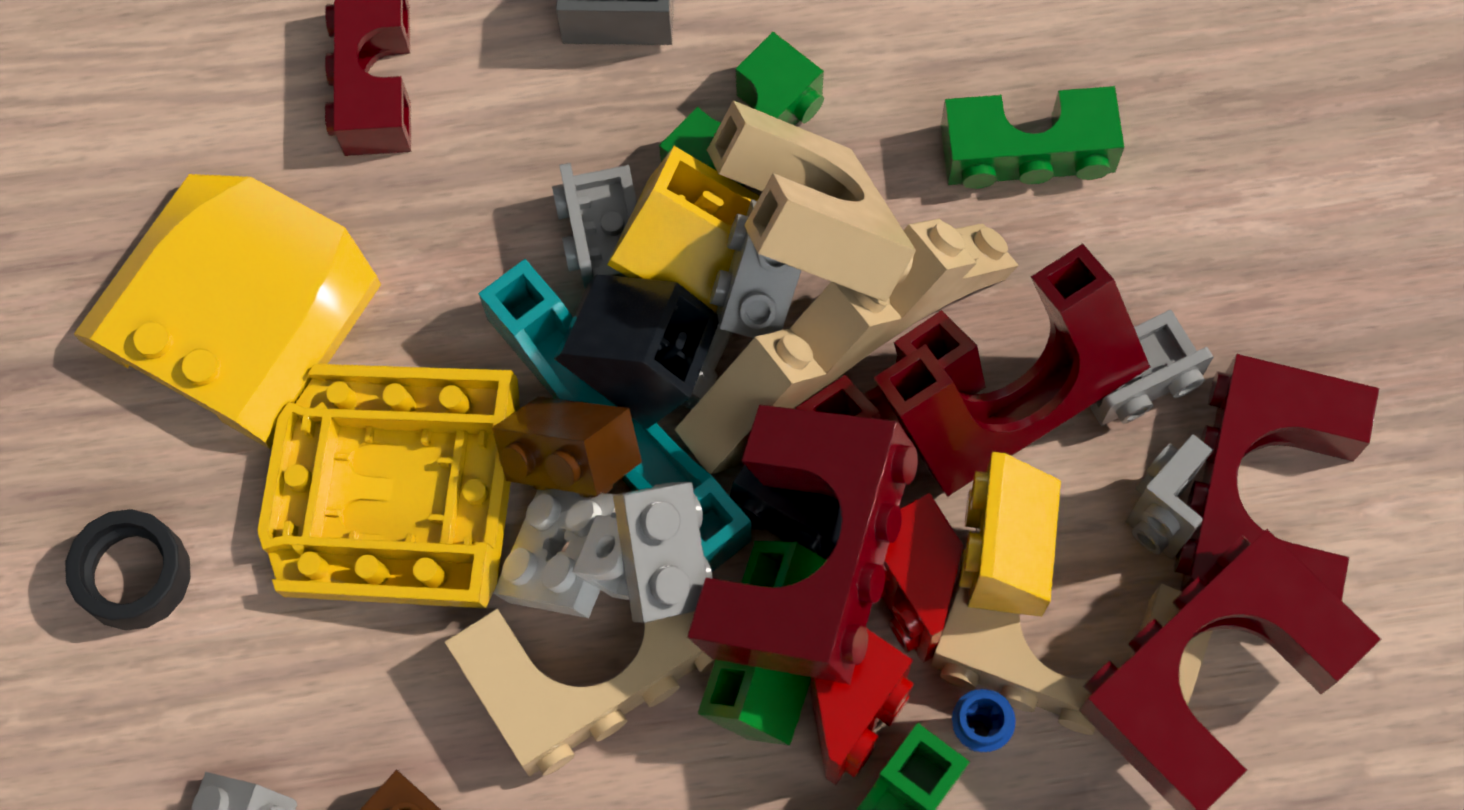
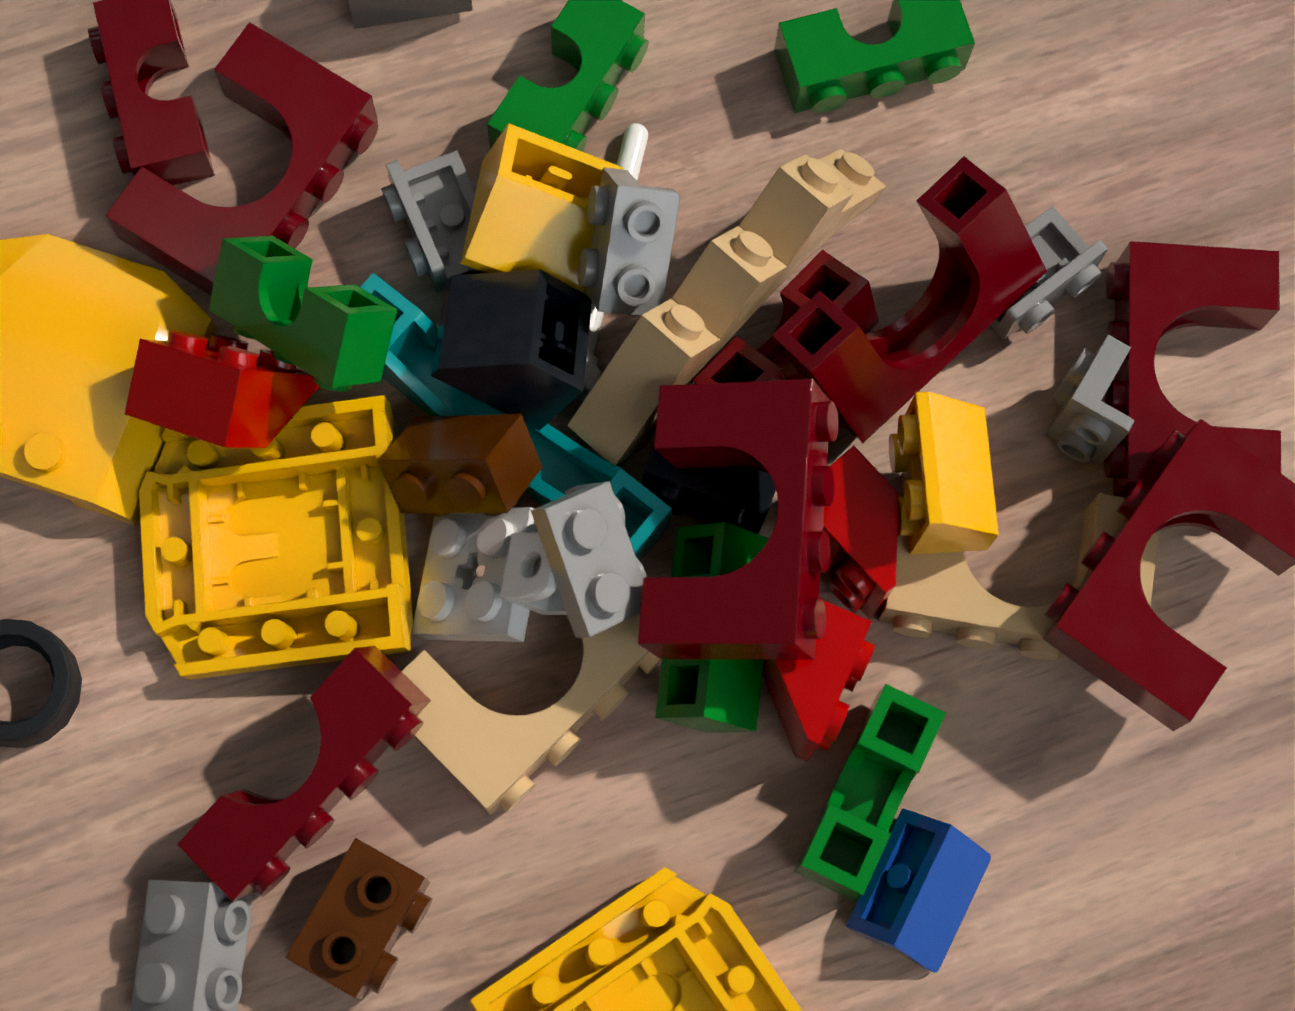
camera: 20 degrees left, 5 degrees up
(364, 339) = (215, 389): none -> red slope
(414, 217) = (305, 101): none -> dark red arch
(425, 654) = (360, 715): none -> dark red arch
(465, 300) = (327, 330): none -> green arch
(814, 203) = (680, 162): tan arch -> none
(989, 709) = (958, 659): blue cone -> none

